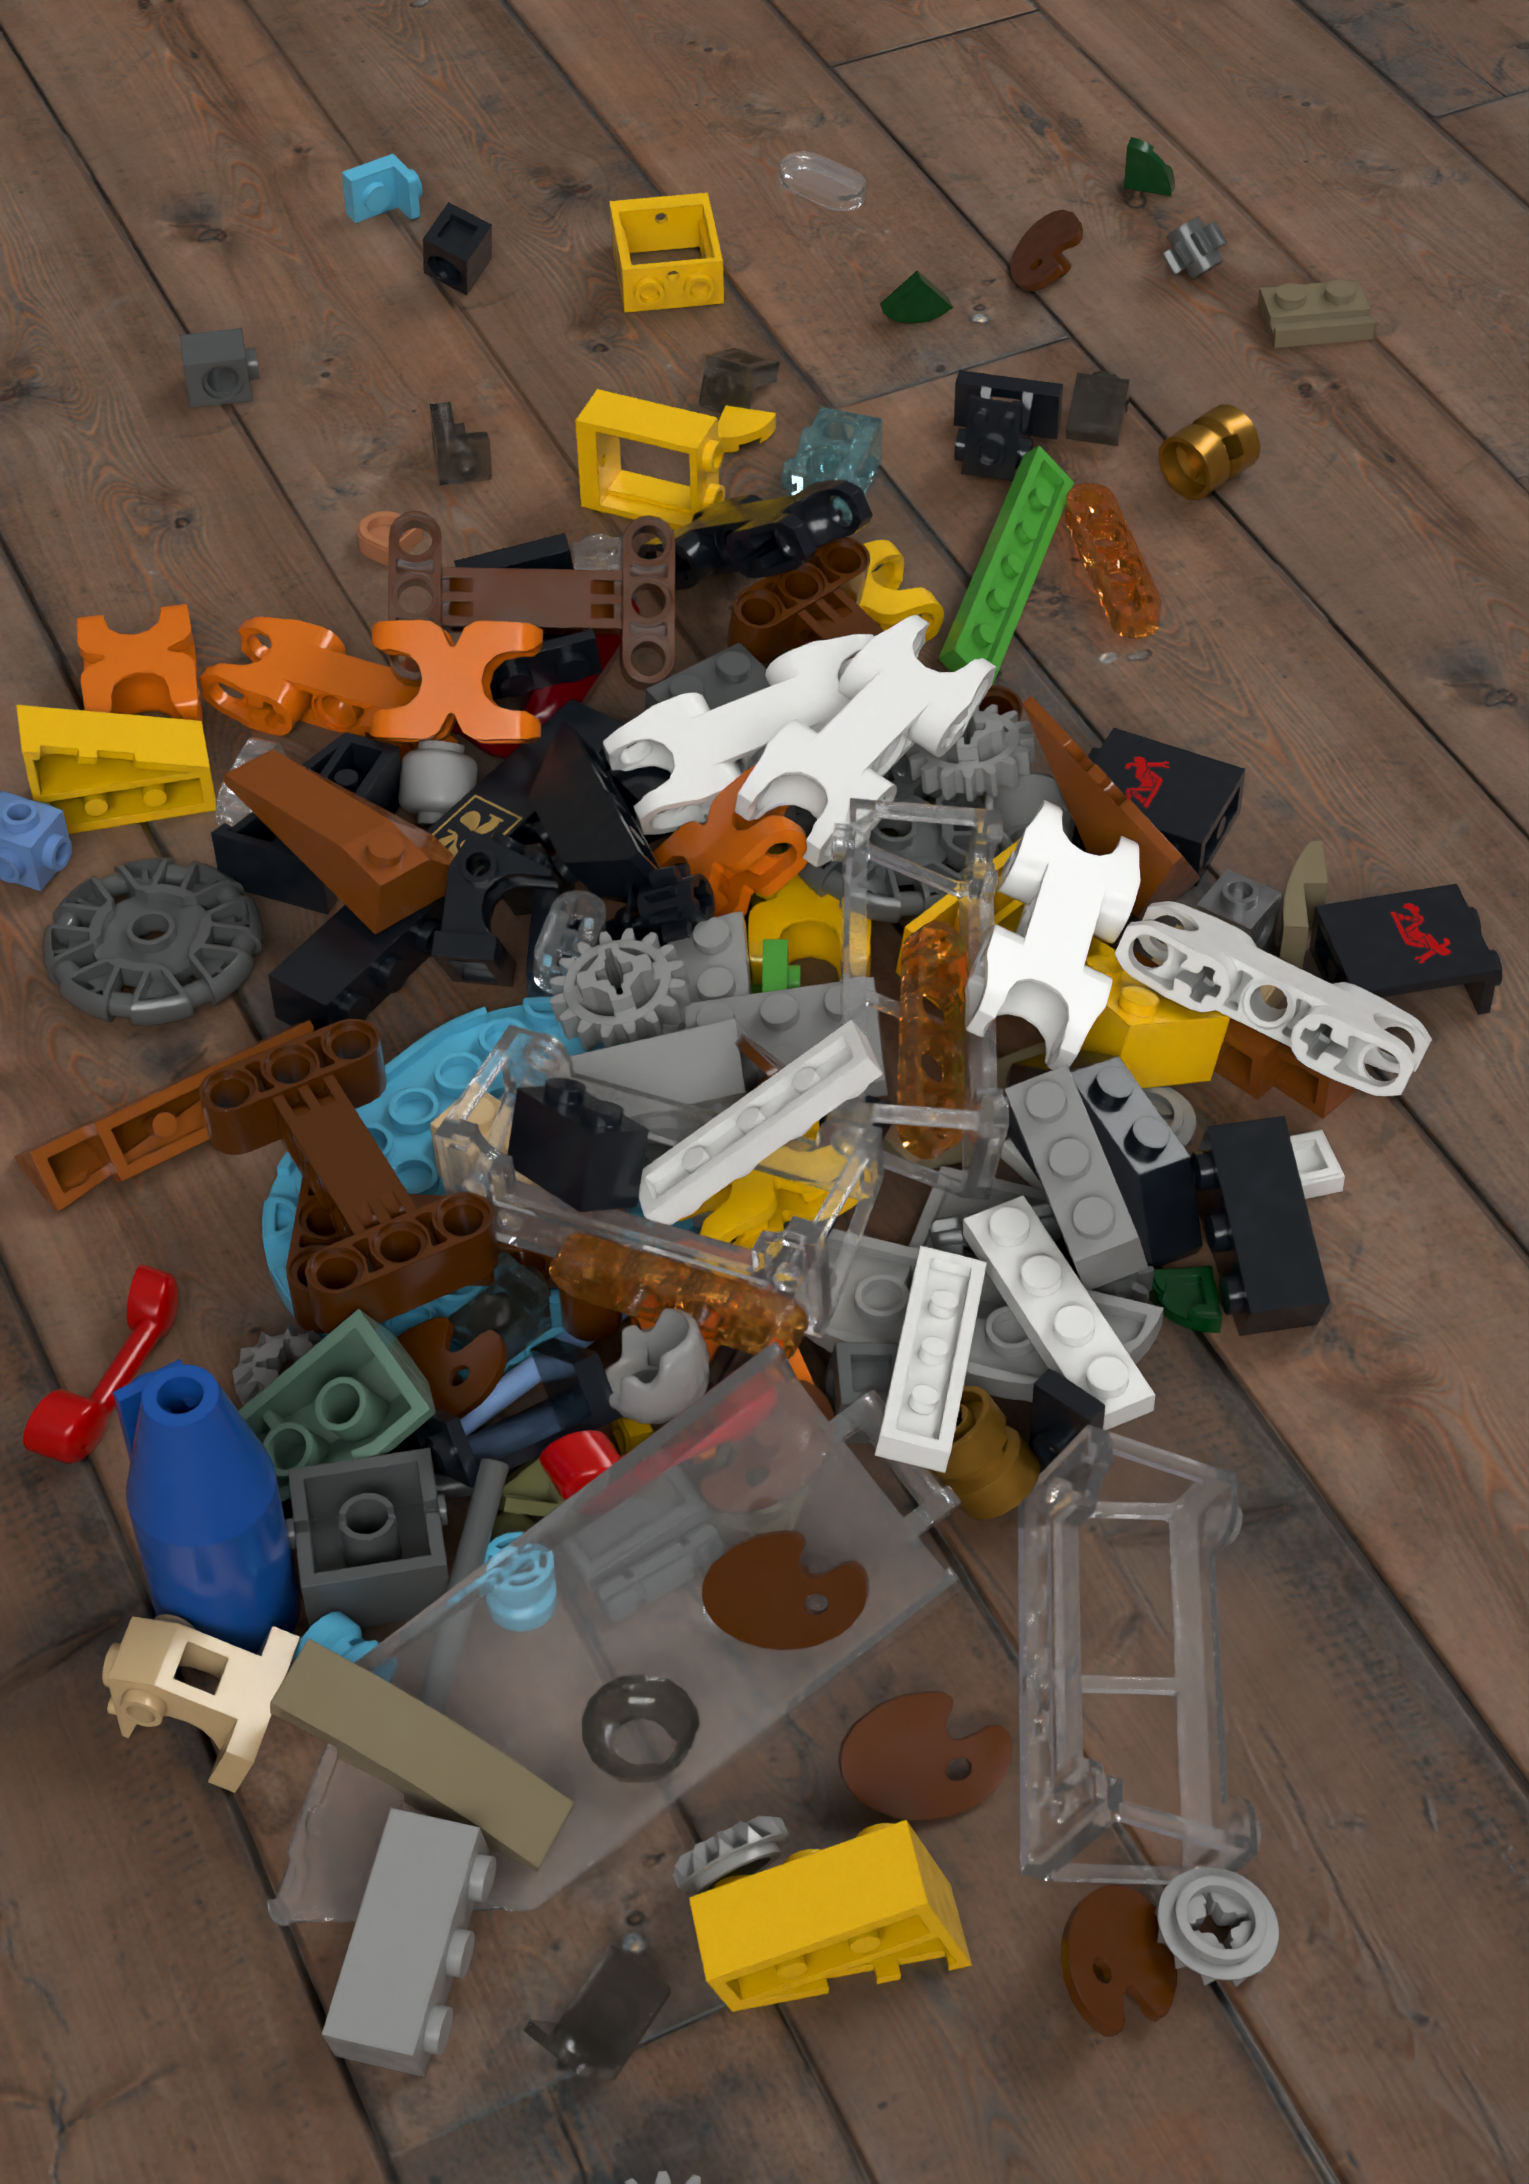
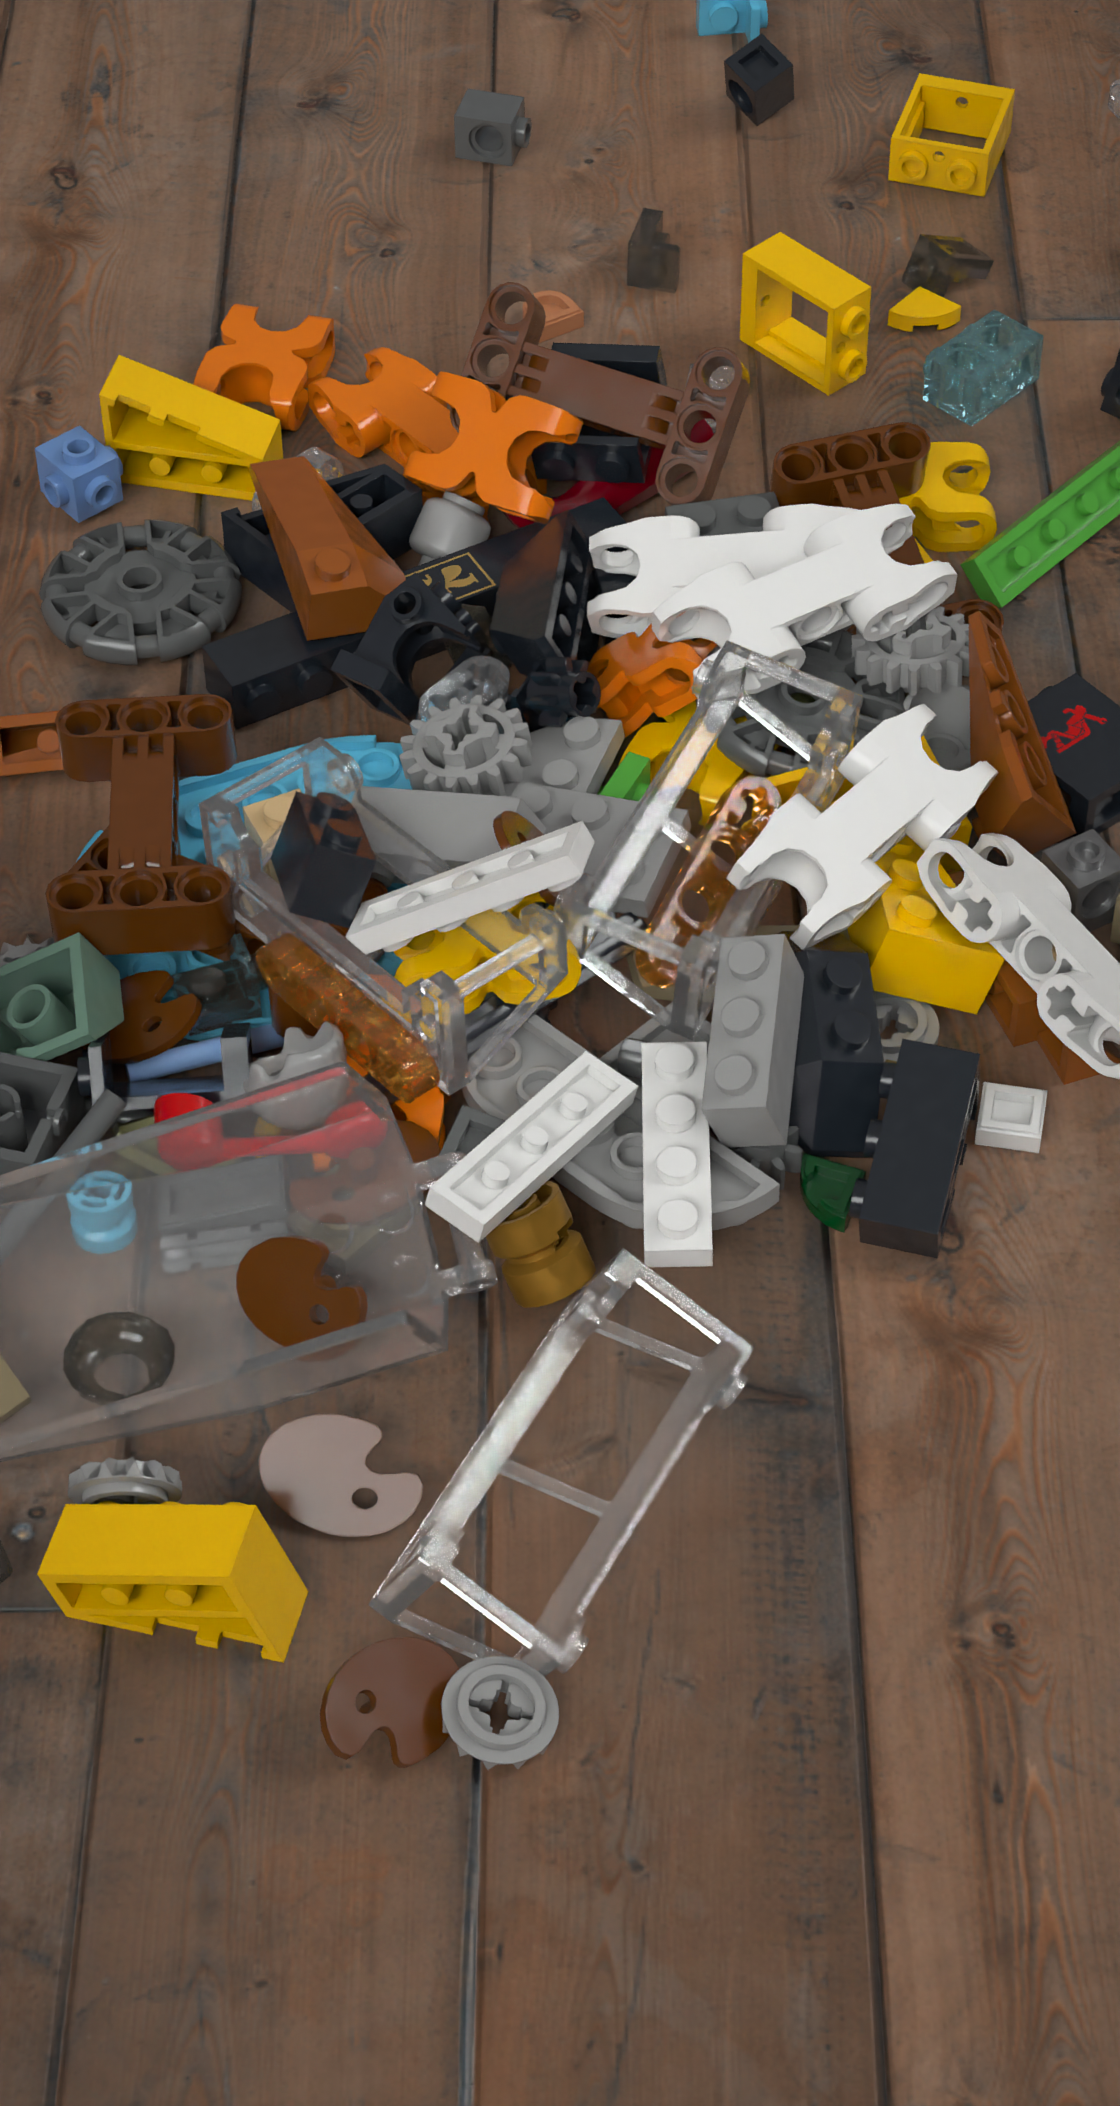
camera: 25 degrees right, 0 degrees up
(761, 534) = (844, 401): black piece -> none
(1059, 1415) = (619, 1229): black plate -> none

